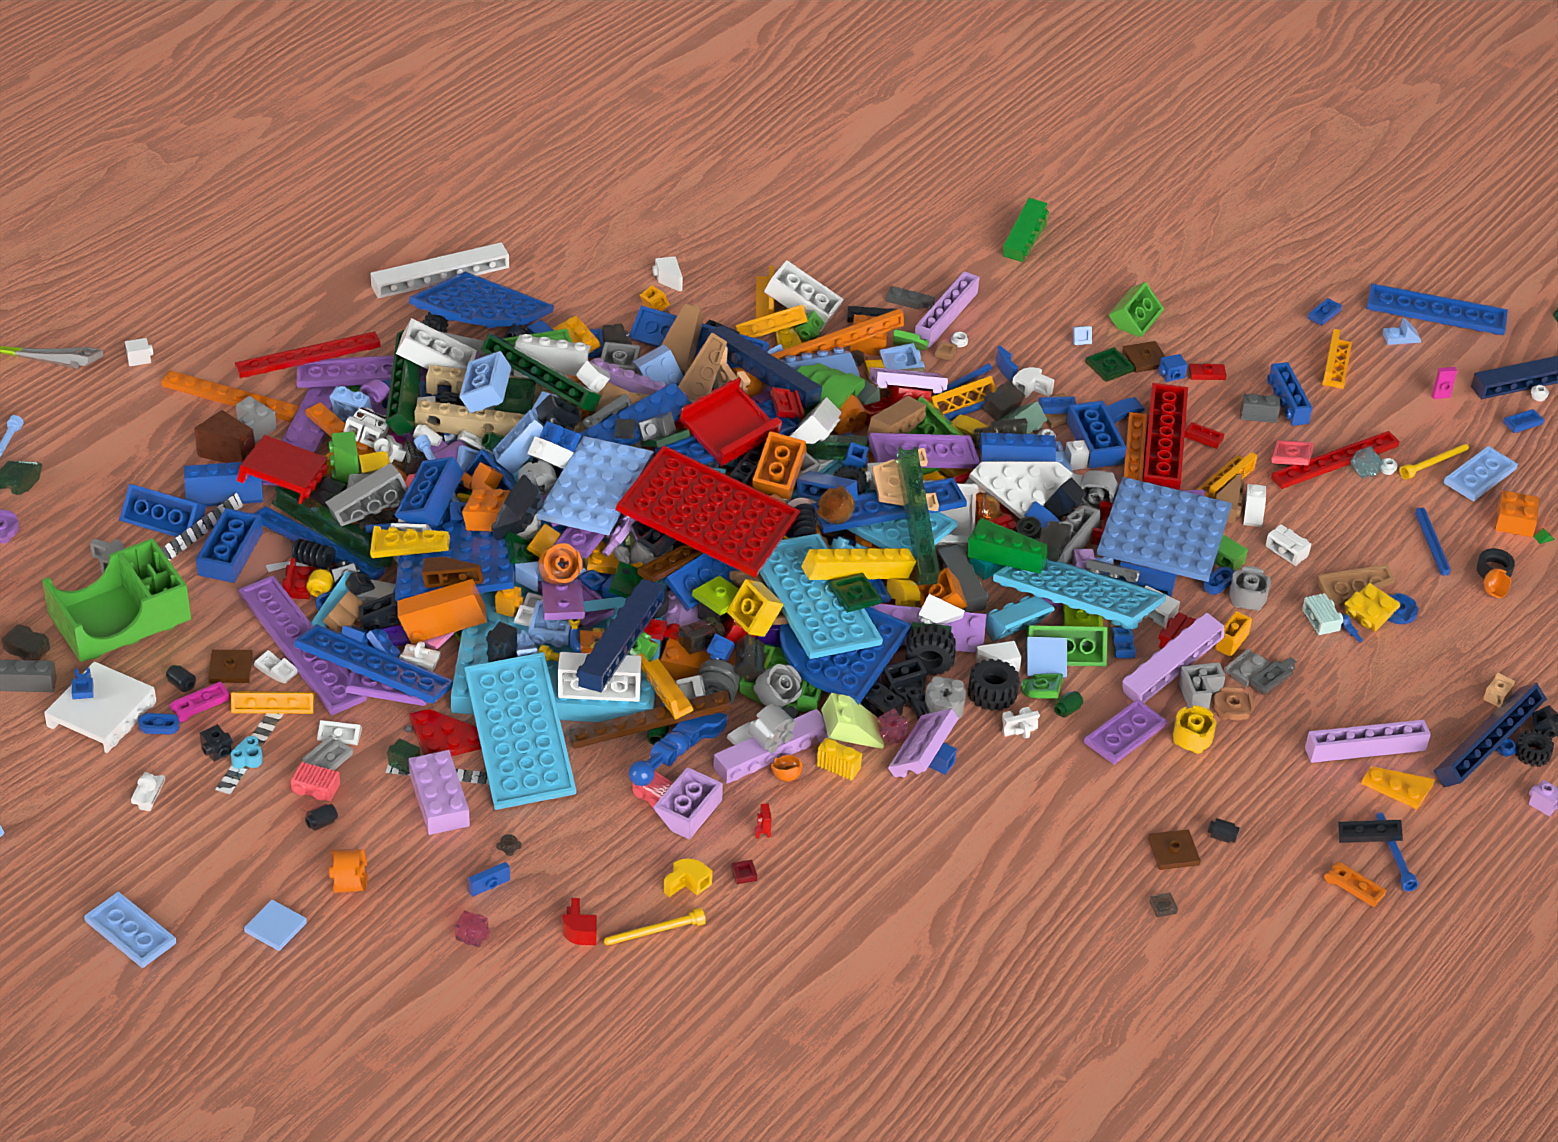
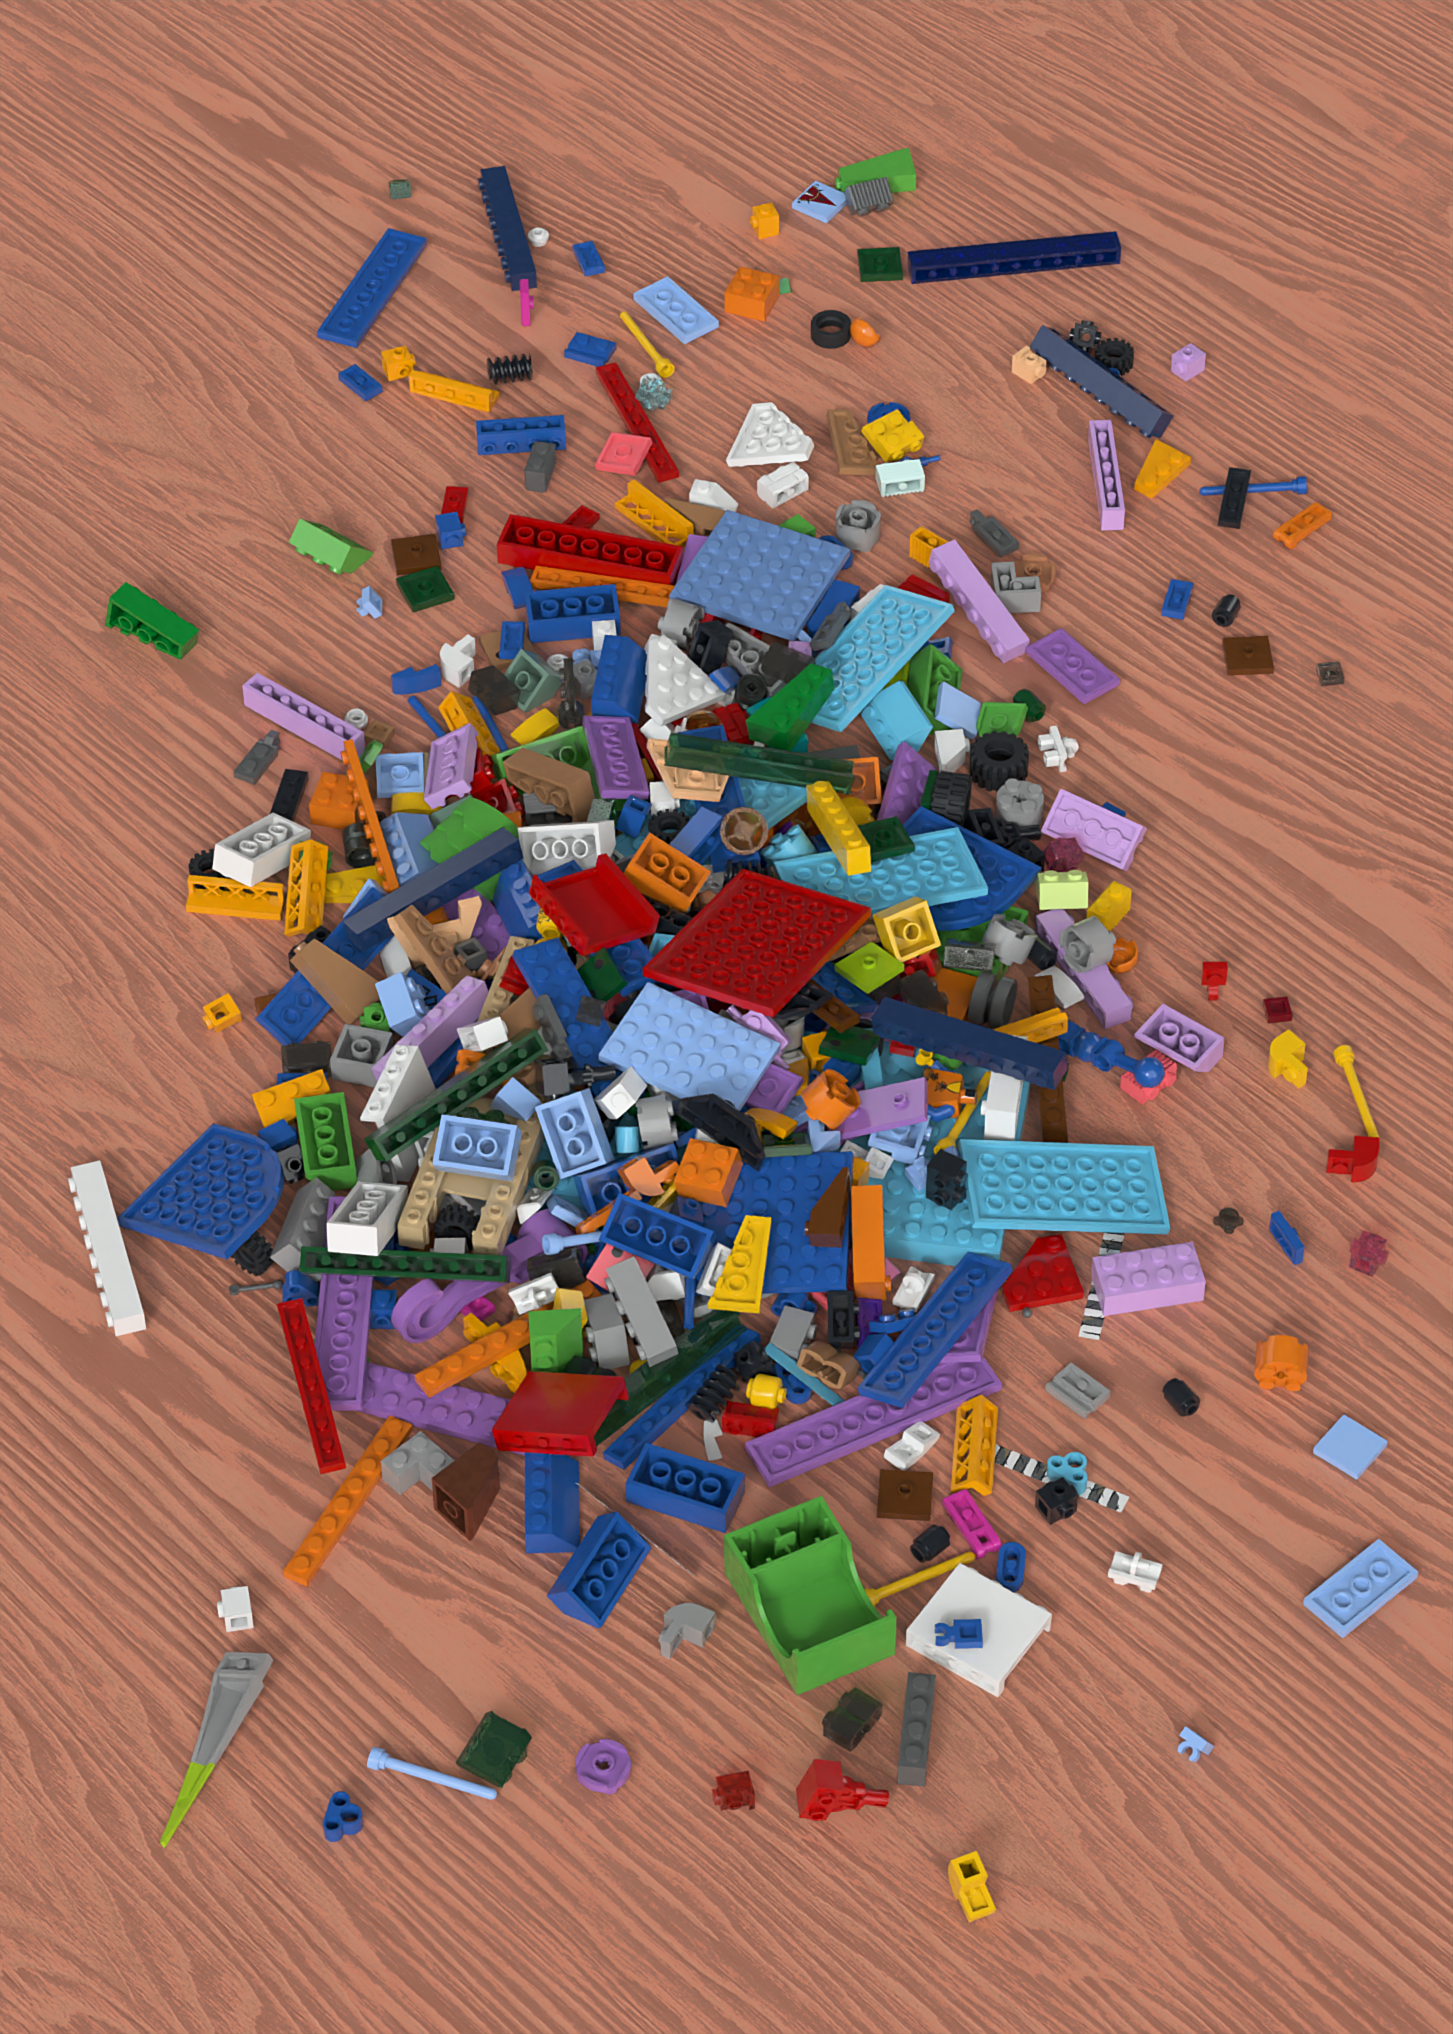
camera: 80 degrees left, 5 degrees up
(134, 649) = (919, 1577): none -> yellow piece
(315, 781) = (1123, 1402): coral brick -> none
(343, 732) = (1031, 1381): white slope -> none
(347, 402) = (423, 1341): light blue plate -> none
(359, 583) = (787, 1340): black slope -> none
(367, 426) = (486, 1315): white hips -> none
(400, 753) = (1084, 1312): clear green brick -> none
(425, 430) = (522, 1247): white cone -> none
(560, 436) = (606, 1073): blue slope -> none
(656, 426) = (589, 975): dark grey slope -> none
(668, 272) = (165, 993): white slope -> none
(692, 687) = (1017, 1005): light grey panel -> none
(720, 648) = (957, 978): blue brick -> none
(787, 403) = (536, 861): red plate -> none
(939, 612) = (908, 778): white slope -> none
(1194, 728) = (1079, 606): yellow brick -> none
(1229, 797) = (1177, 599): none -> blue plate
(1246, 667) = (978, 552): light grey plate -> none
(1333, 530) = (768, 438): none -> white plate
(1349, 324) = (397, 362): none -> light orange brick
(1368, 385) = (509, 368): none -> black piece
(1402, 335) = (412, 327): light blue slope -> none
(1415, 431) = (590, 349): none -> blue plate
(1433, 541) = (783, 371): blue axle -> none

